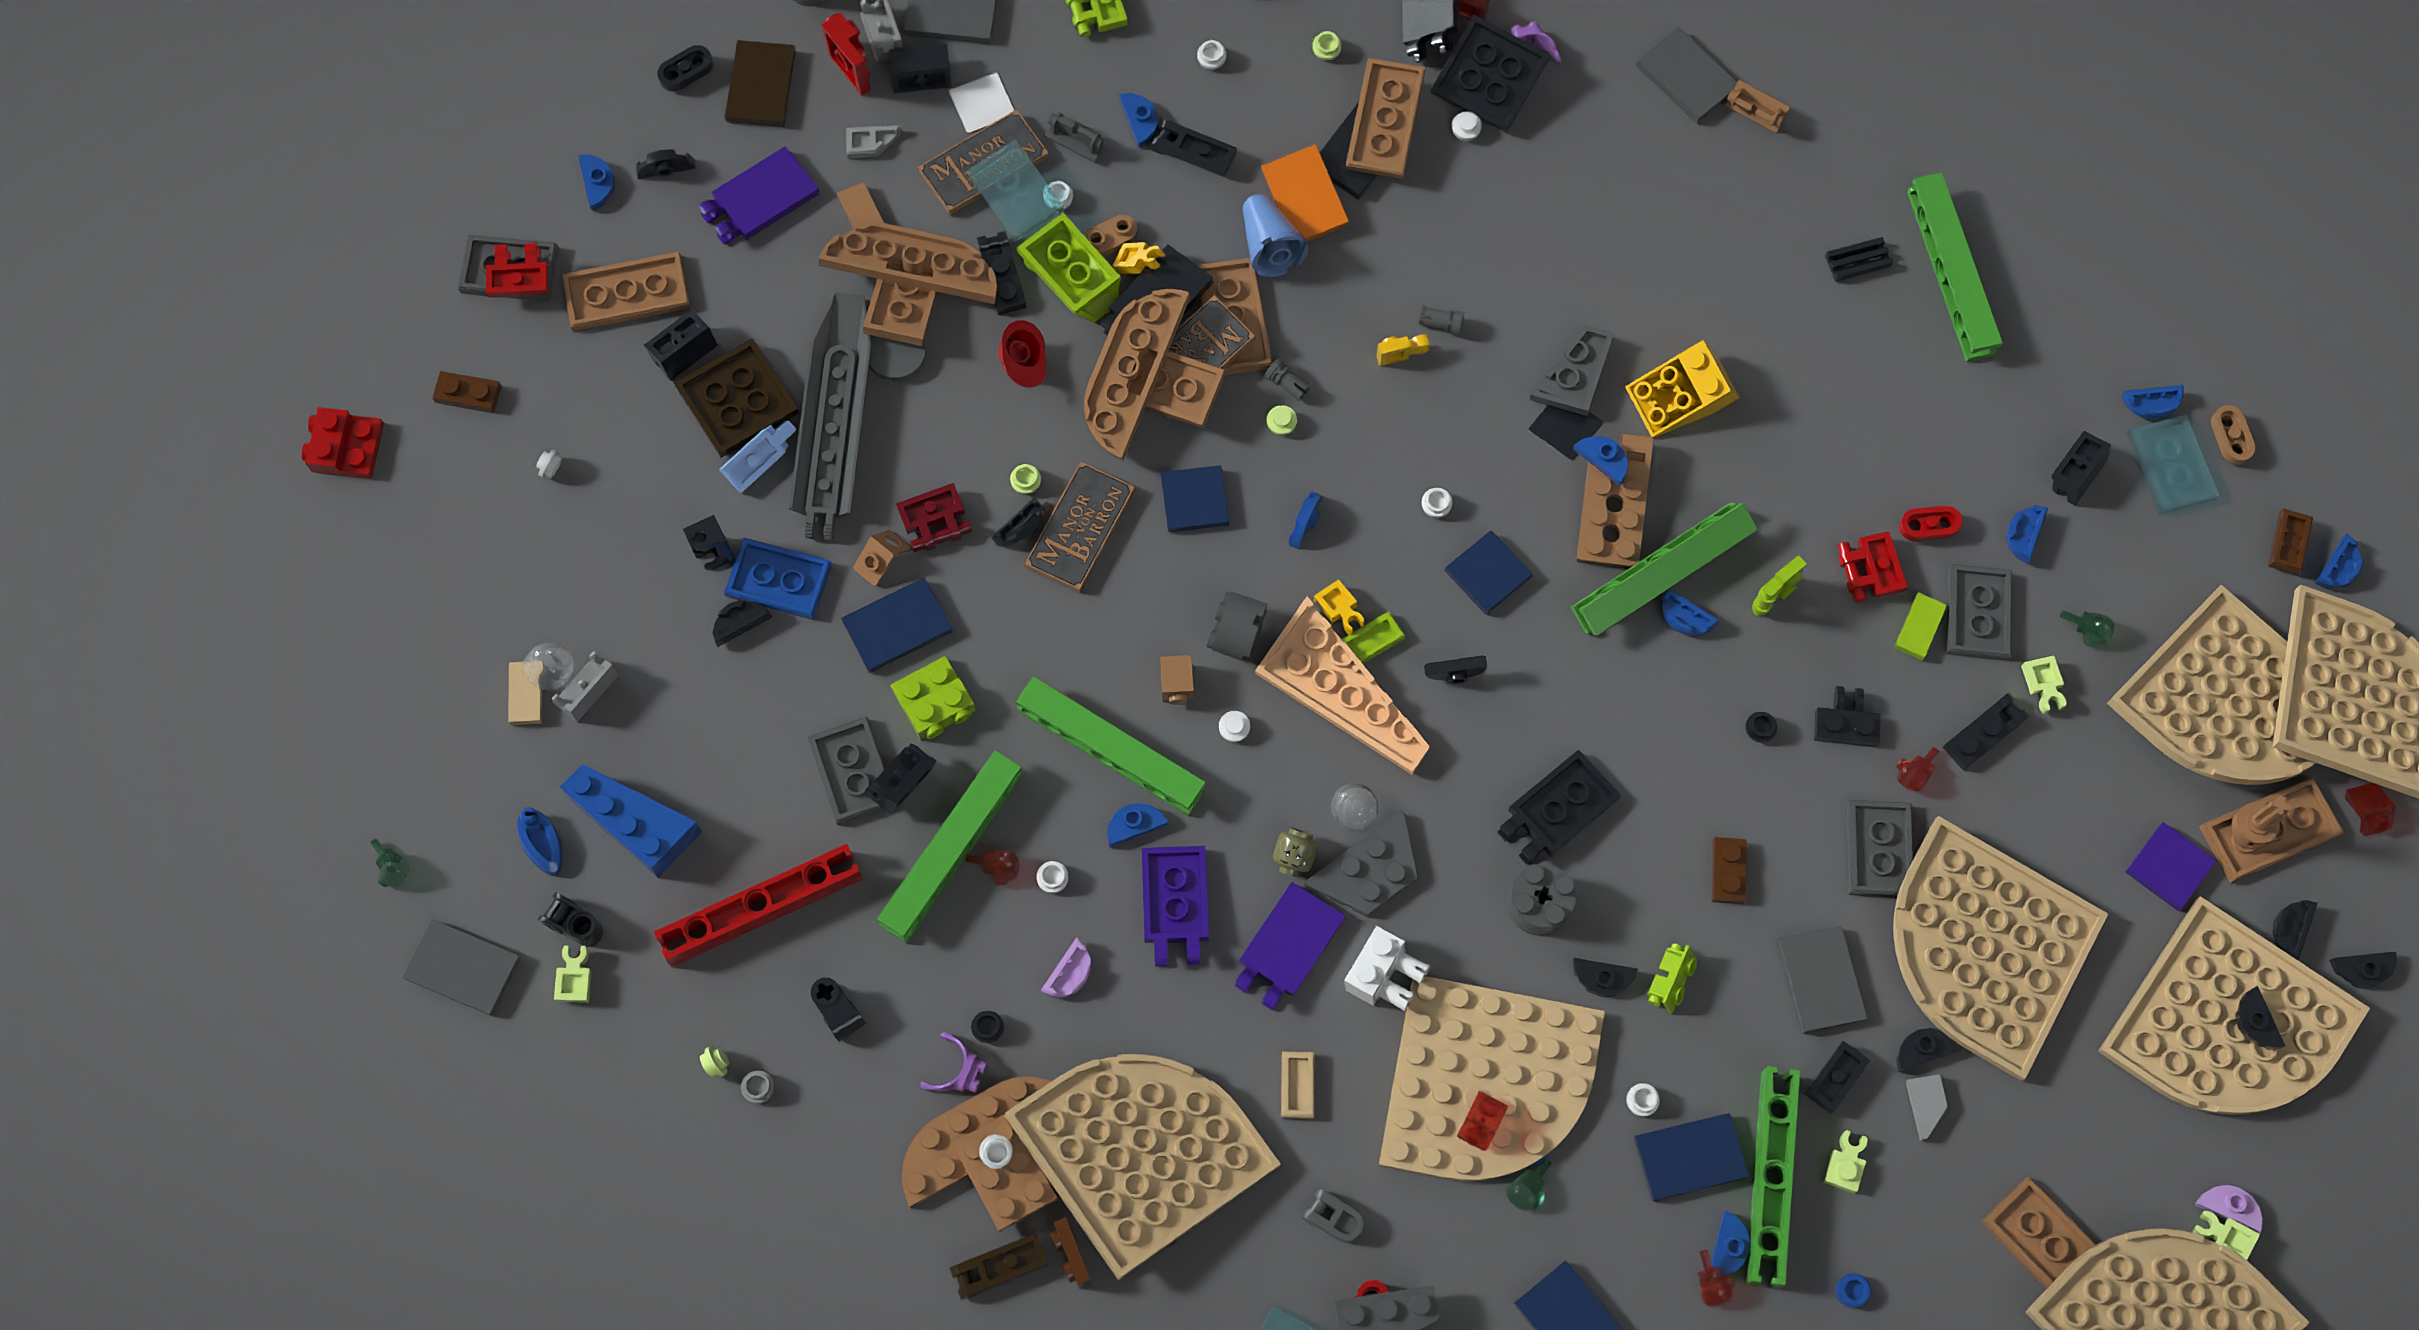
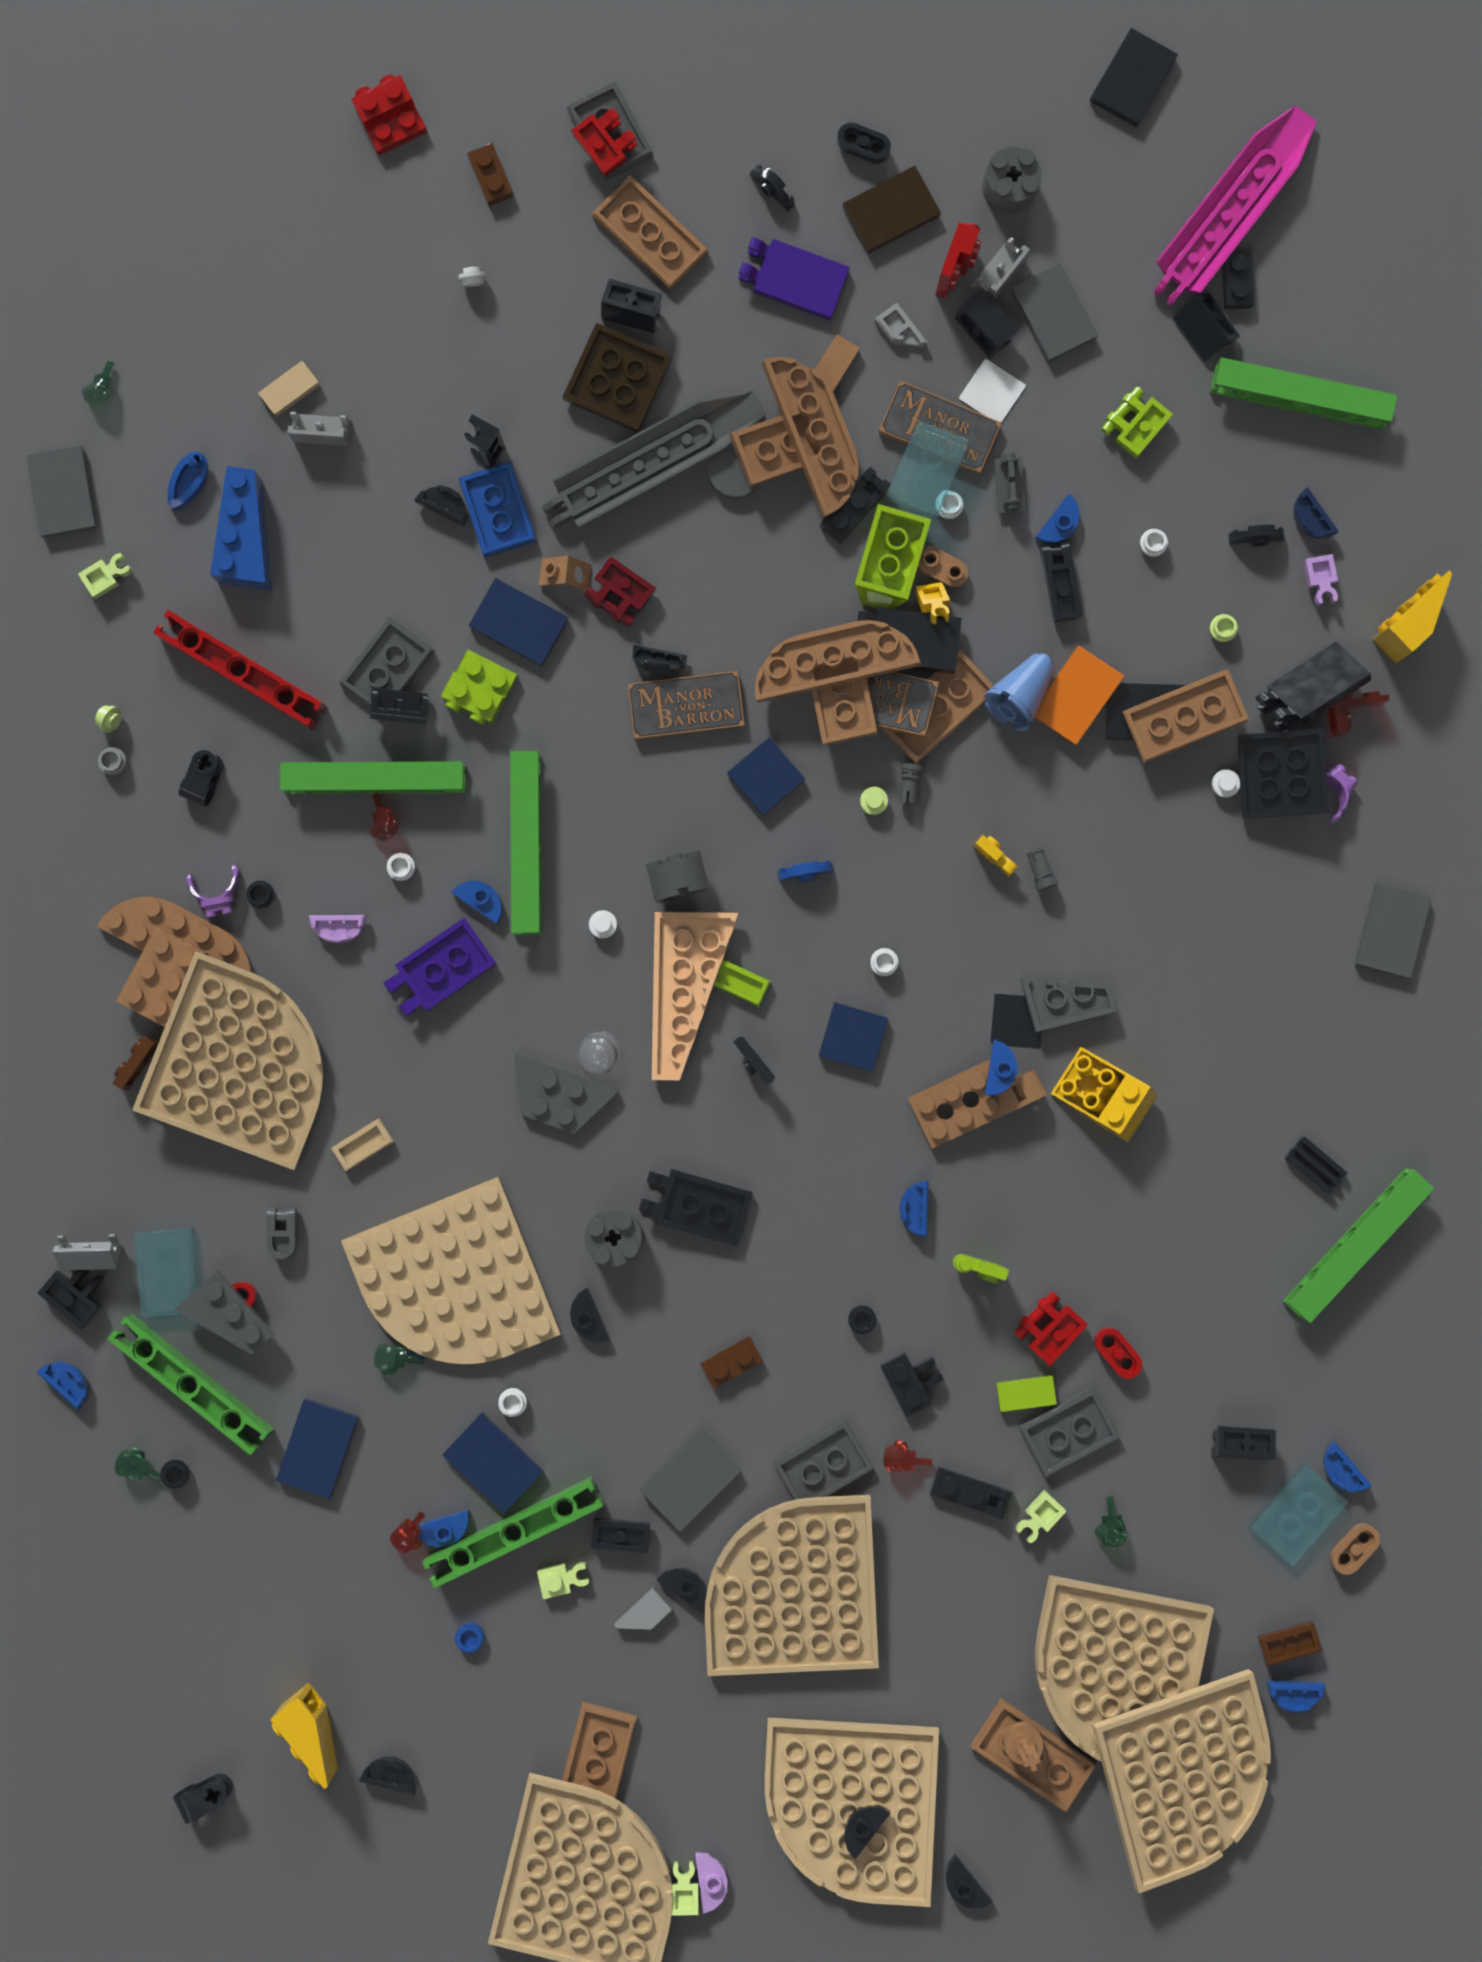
camera: 55 degrees right, 15 degrees up
(549, 666) = (317, 391): clear hair -> none
(567, 918) = (141, 540): black piece -> none
(597, 180) = (726, 144): blue plate -> none
(757, 456) = (581, 426): light blue hinge -> none
(996, 1151) = (165, 963): white plate -> none
(1000, 1266) = (96, 1018): dark brown plate -> none
(1023, 353) = (792, 569): red piece -> none
(1025, 479) = (697, 638): yellowish green plate -> none
(1176, 679) = (609, 858): medium nougat brick -> none
(1289, 944) = (463, 1071): dark purple tile -> none
(1295, 851) = (533, 1032): olive head -> none
(1337, 604) = (749, 939): yellow plate -> none
(1374, 966) = (483, 1145): white brick -> none
(1482, 1121) = (415, 1297): clear red bracket -> none
(1664, 568) = (941, 1170): bright green piece -> none
(1671, 989) = (608, 1372): lime hinge -> none
(1757, 105) = (1400, 1004): medium nougat hinge -> none
(2024, 531) = (1160, 1430): blue plate -> none
(2170, 866) = (952, 1693): dark purple tile -> none
(2292, 926) = (961, 1813): black plate -> none
(2372, 807) = (1100, 1824): clear red bracket -> none

